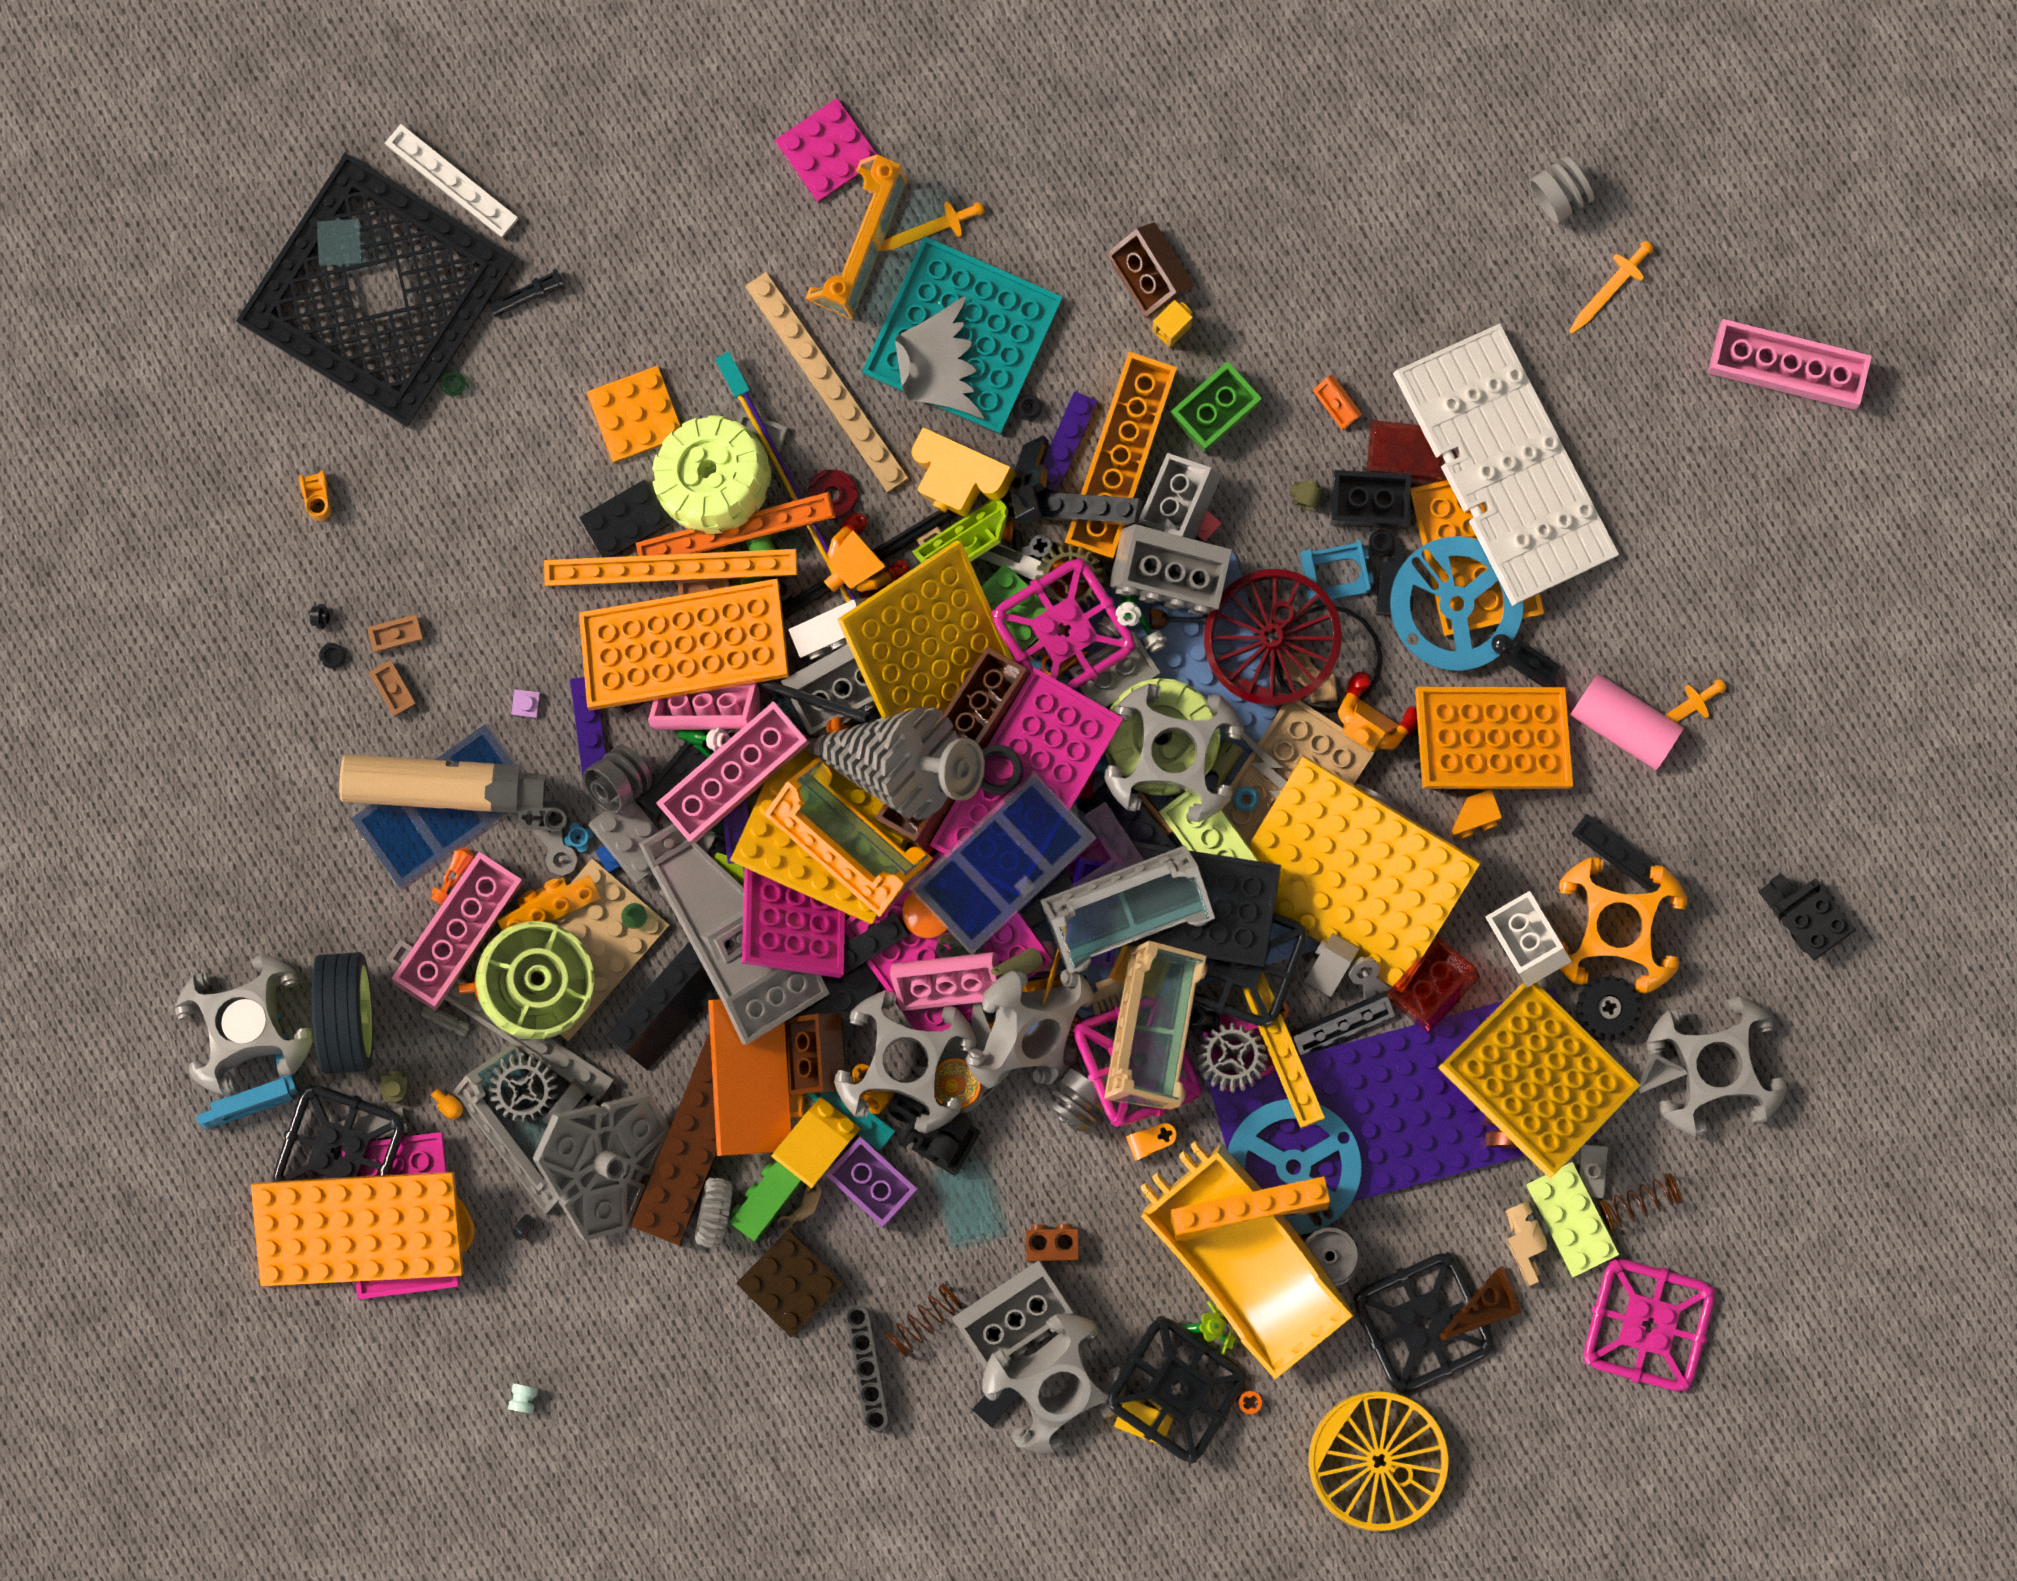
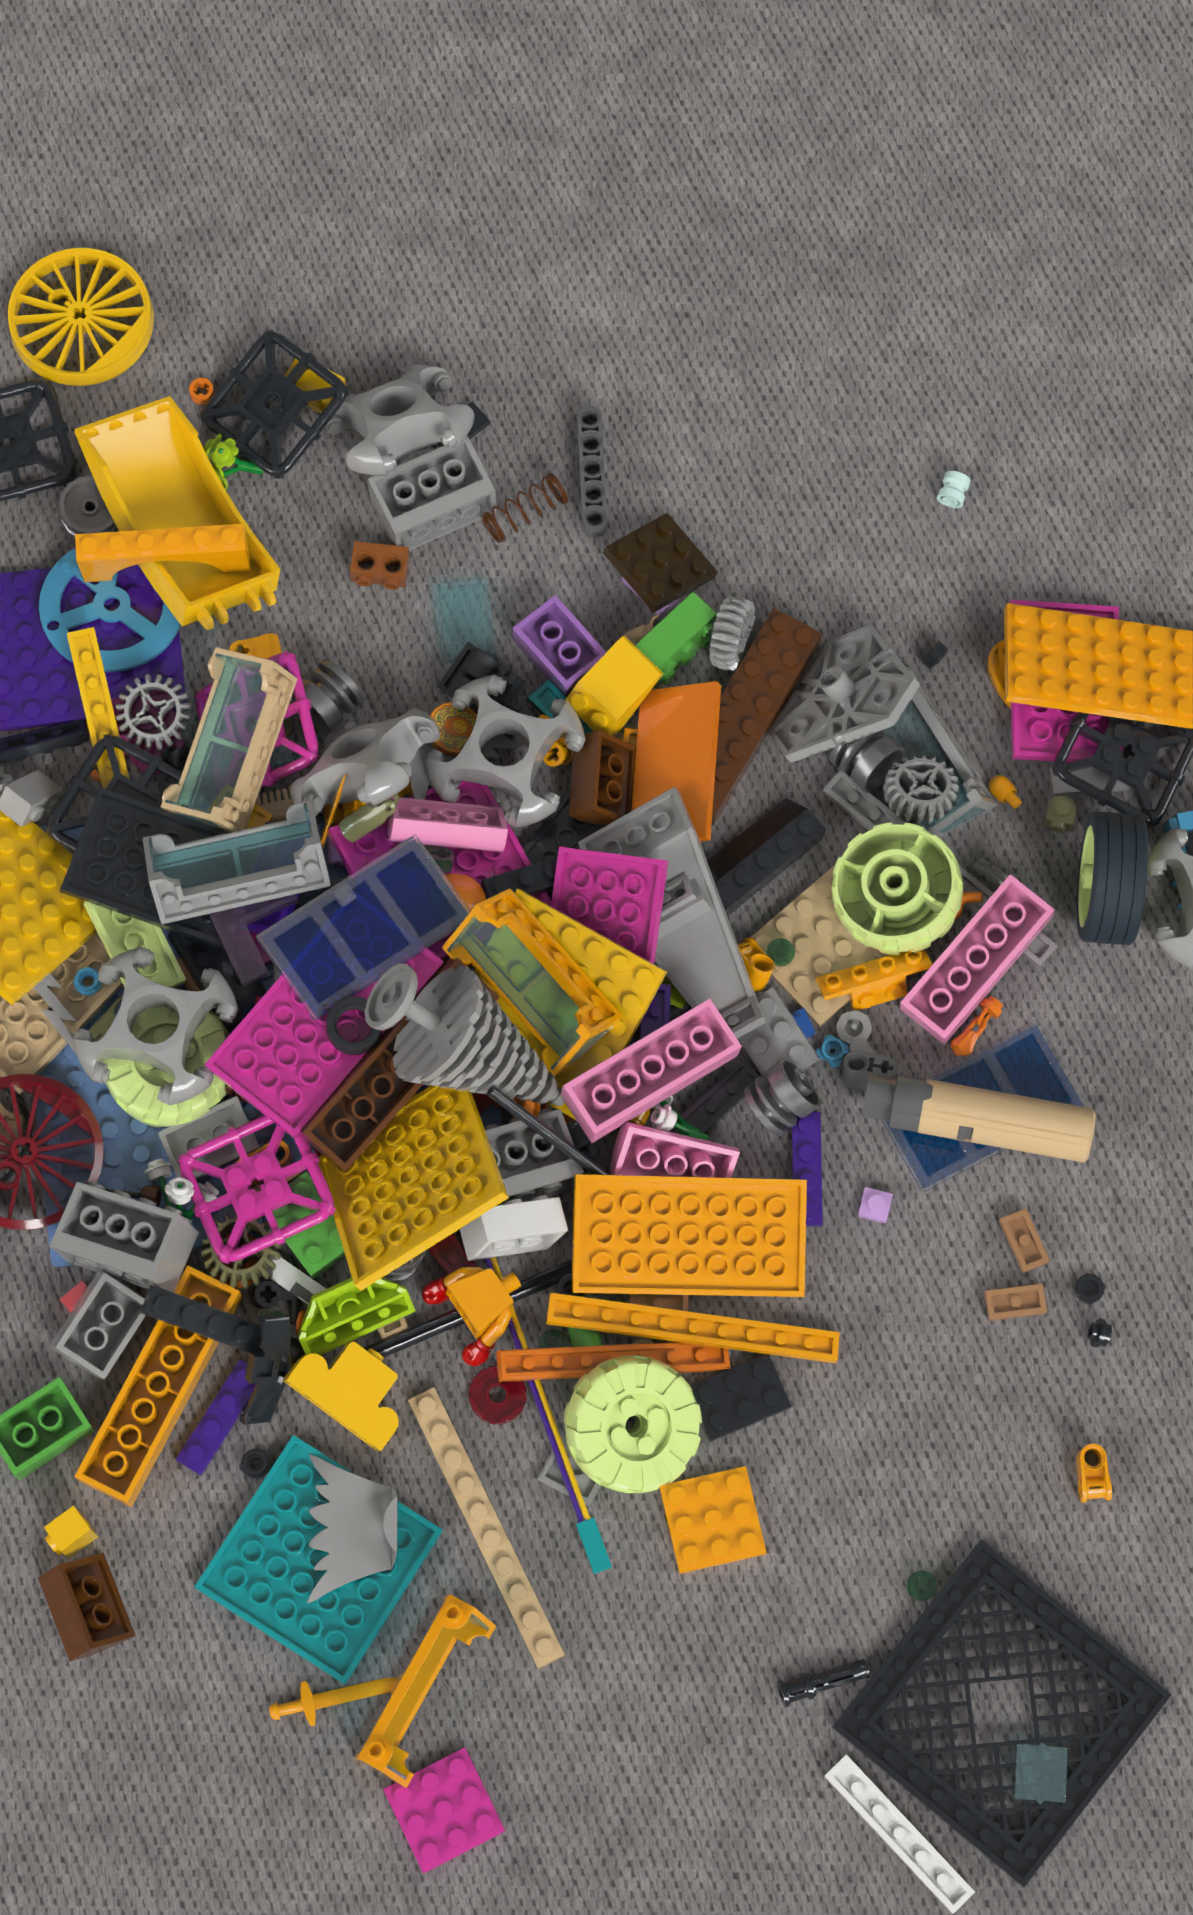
camera: 175 degrees left, 10 degrees down
(656, 907) = (757, 963): none -> light orange piece

